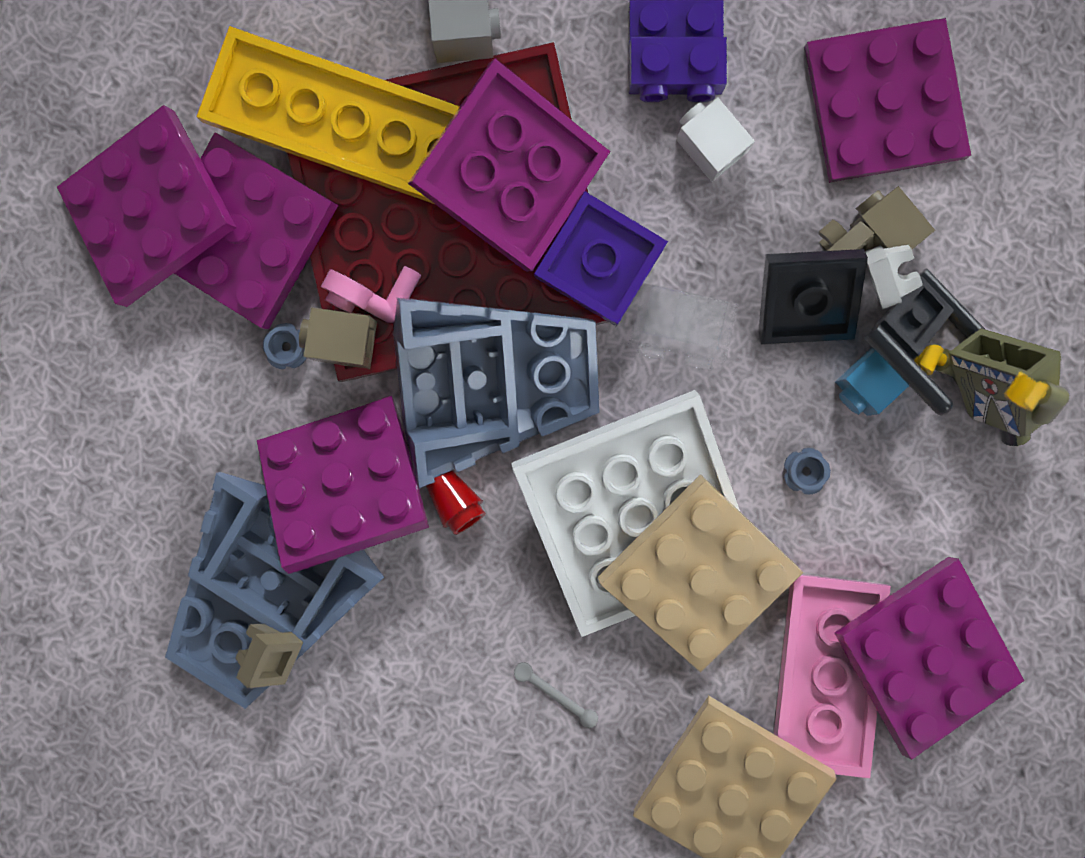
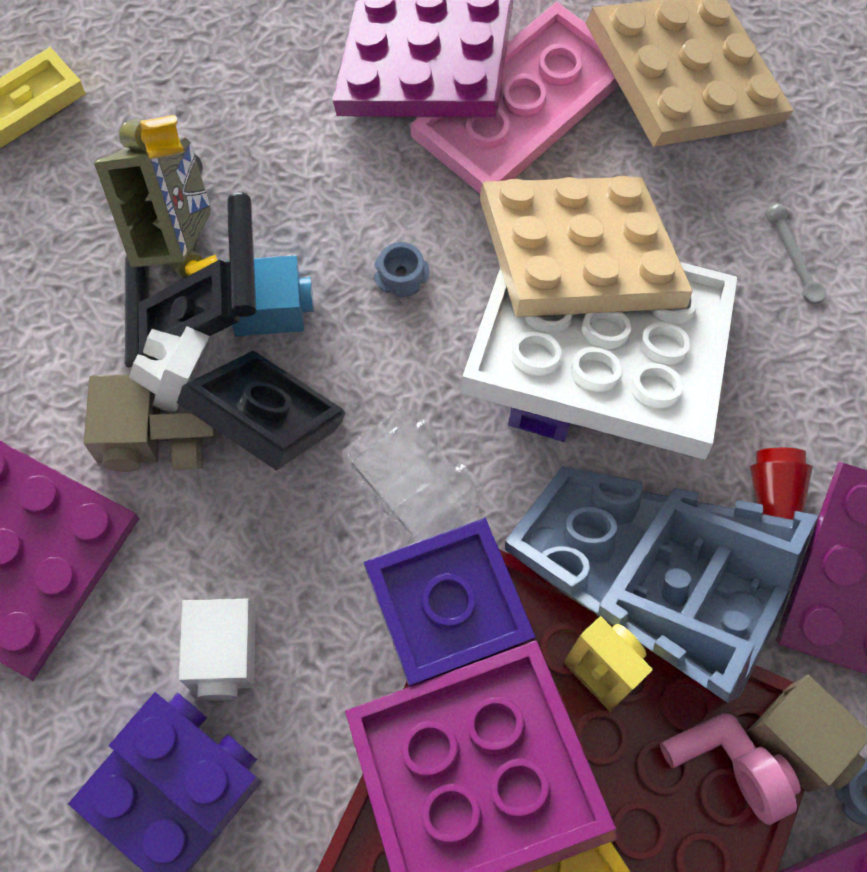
camera: 145 degrees left, 20 degrees down
(480, 281) = (608, 662): none -> light yellow plate

